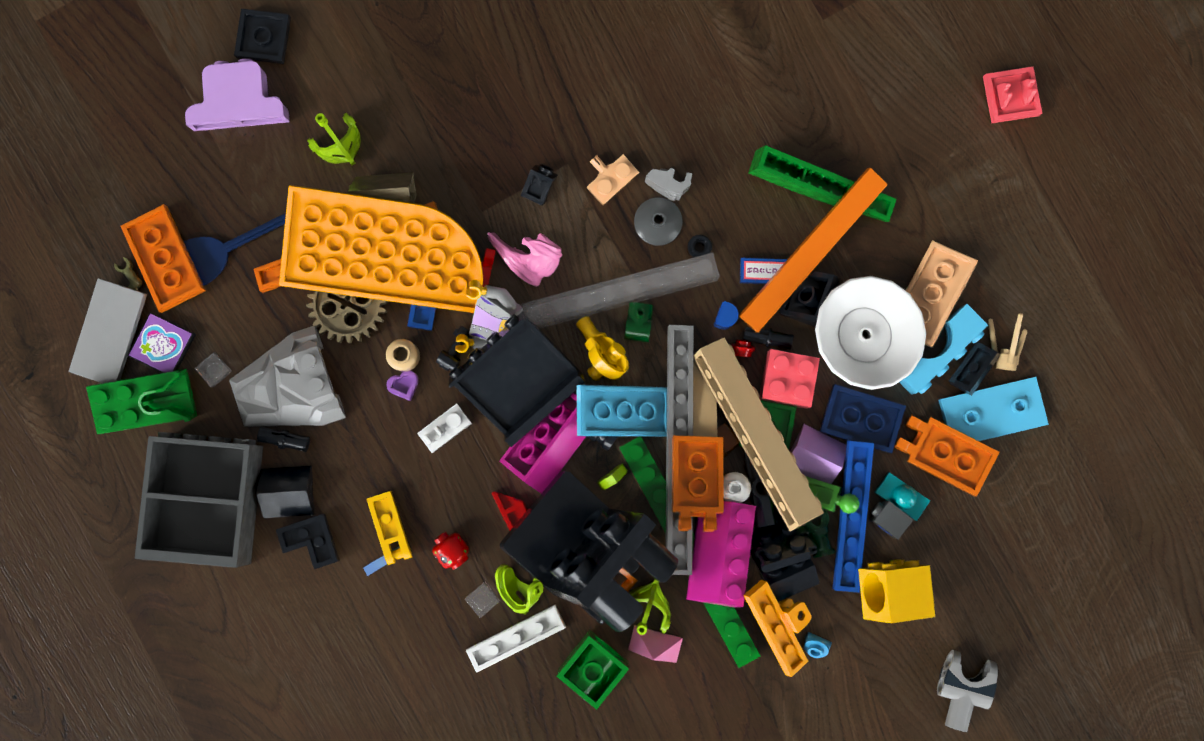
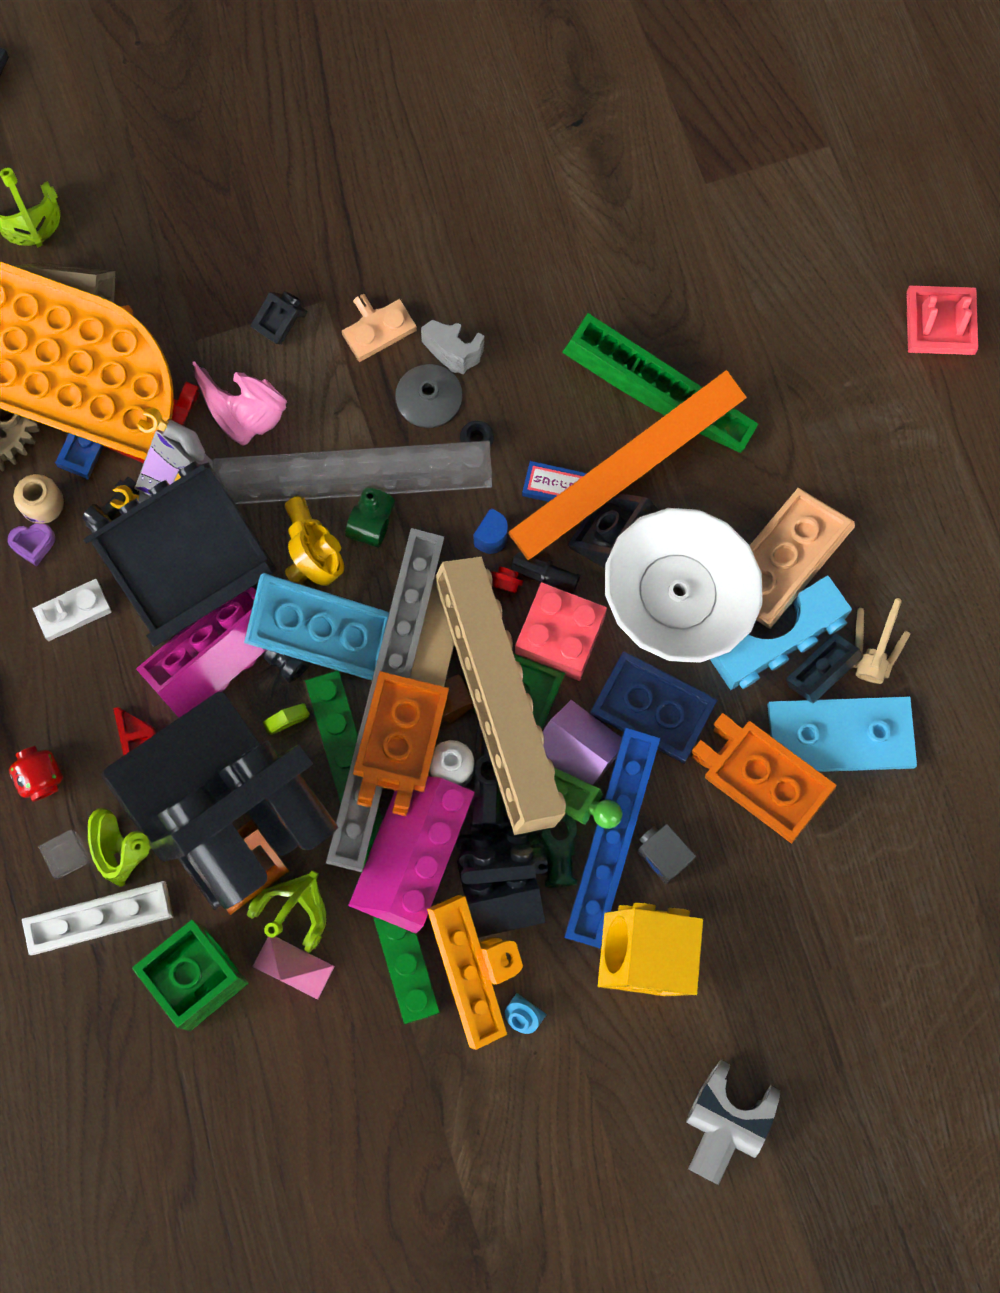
camera: 10 degrees right, 10 degrees down
(902, 496) = (690, 826): teal tile -> none

